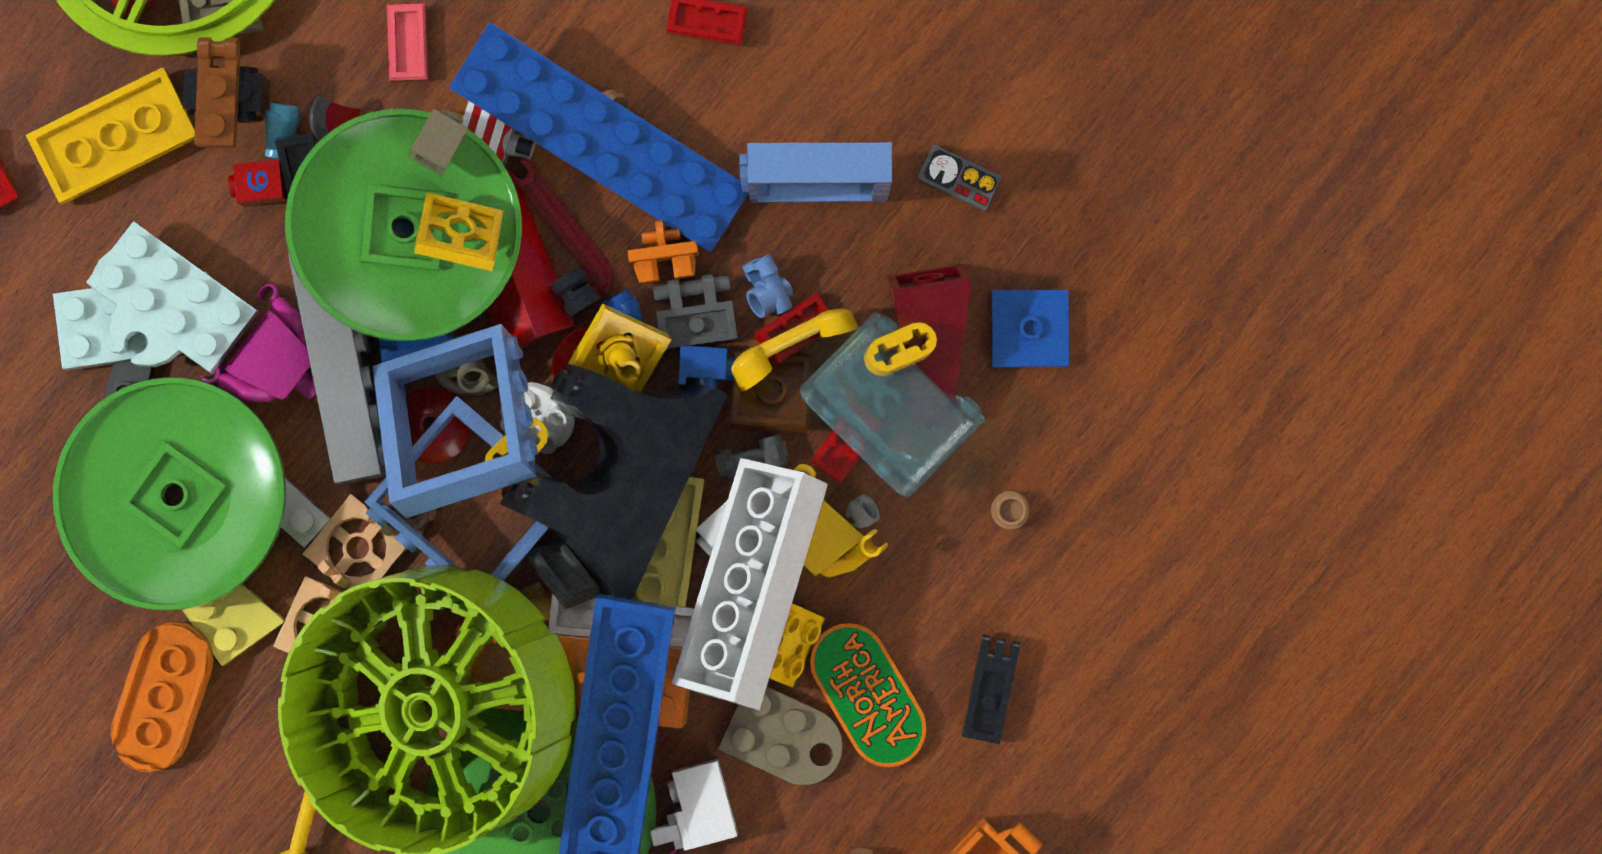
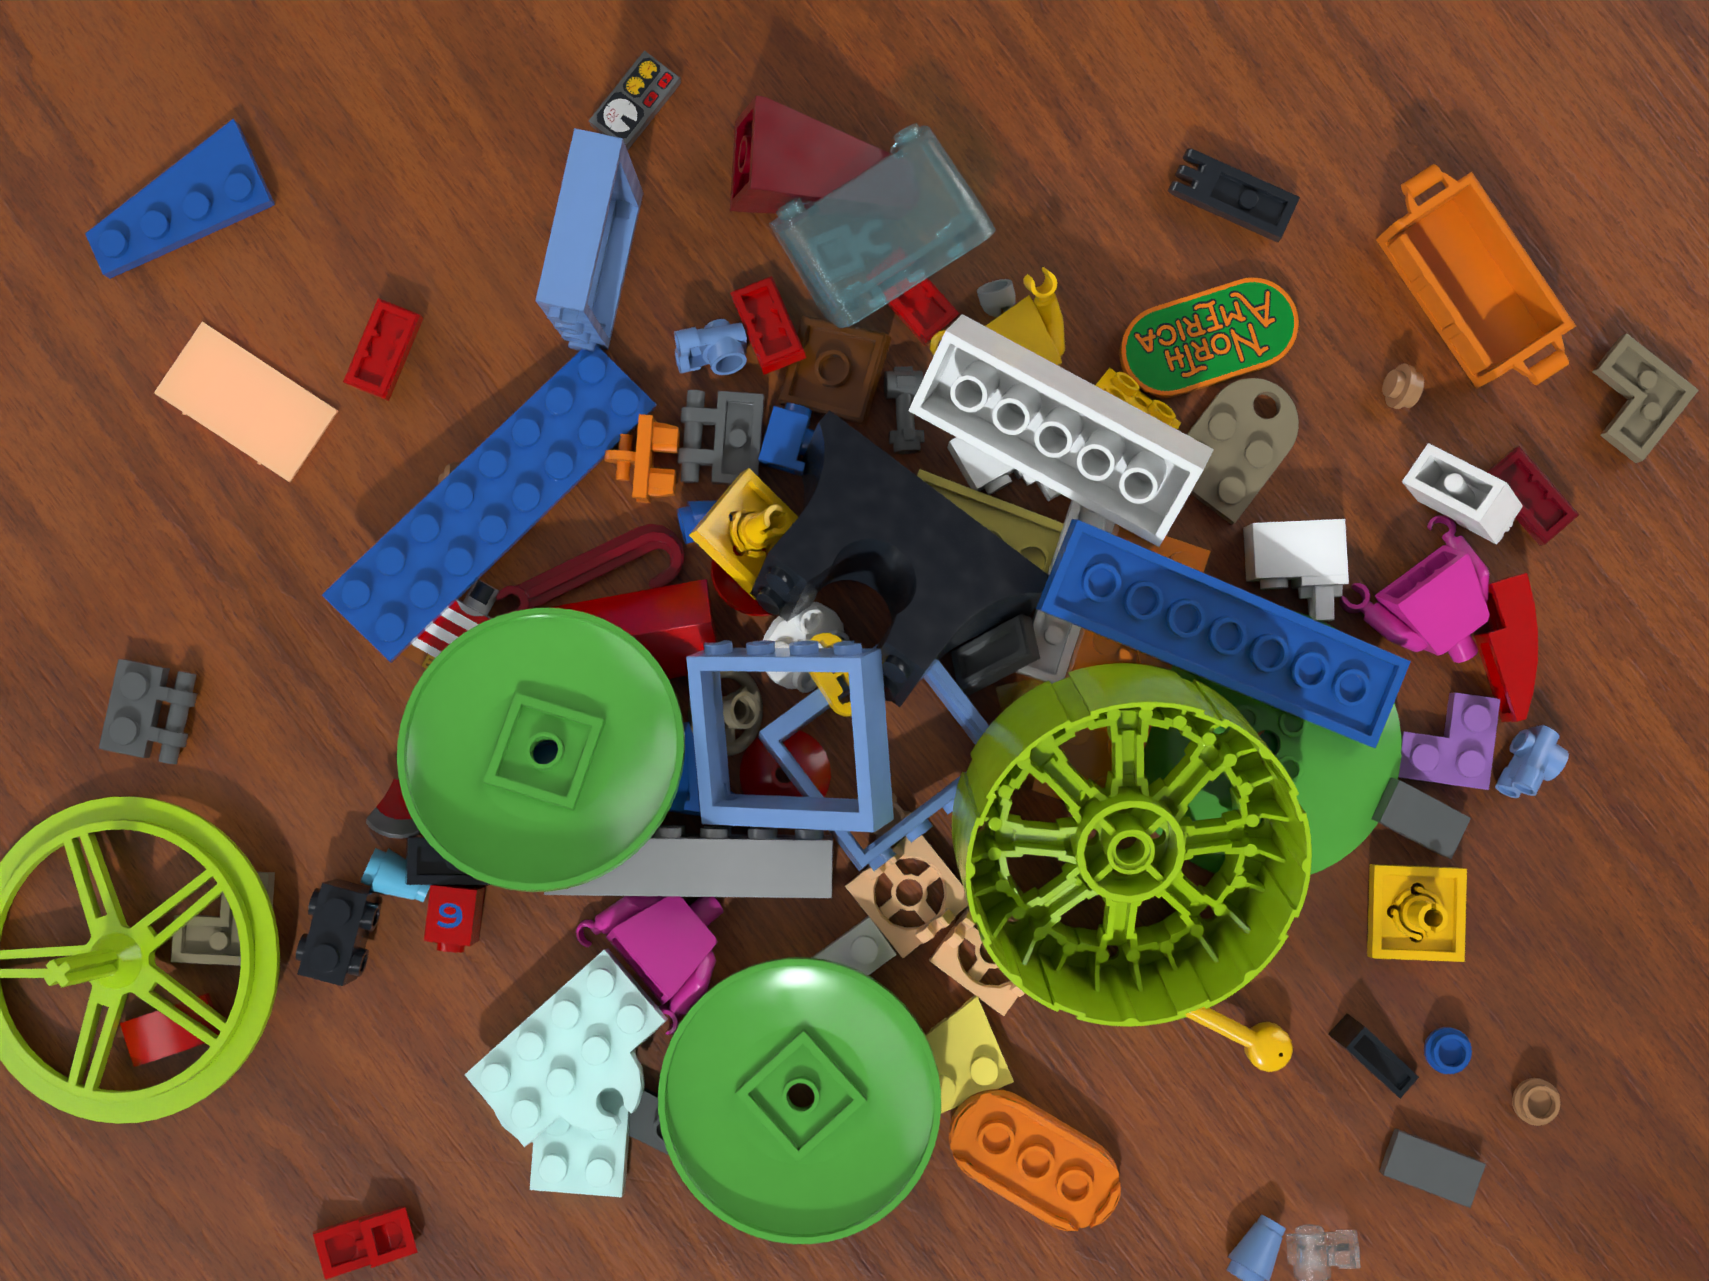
camera: 80 degrees left, 0 degrees up
(112, 136) = (358, 1078): yellow plate -> none
(217, 93) = (333, 940): dark orange plate -> none
(407, 43) = (329, 705): coral tile -> none
(438, 141) = (450, 683): dark tan brick -> none
(464, 213) = (560, 650): yellow piece -> none
(580, 299) = (677, 564): black wheel -> none
(754, 364) = (800, 377): yellow piece -> none
(897, 340) = (831, 191): yellow beam -> none
(1010, 510) = (1031, 128): medium nougat plate -> none
(1029, 328) = (827, 59): blue plate -> none

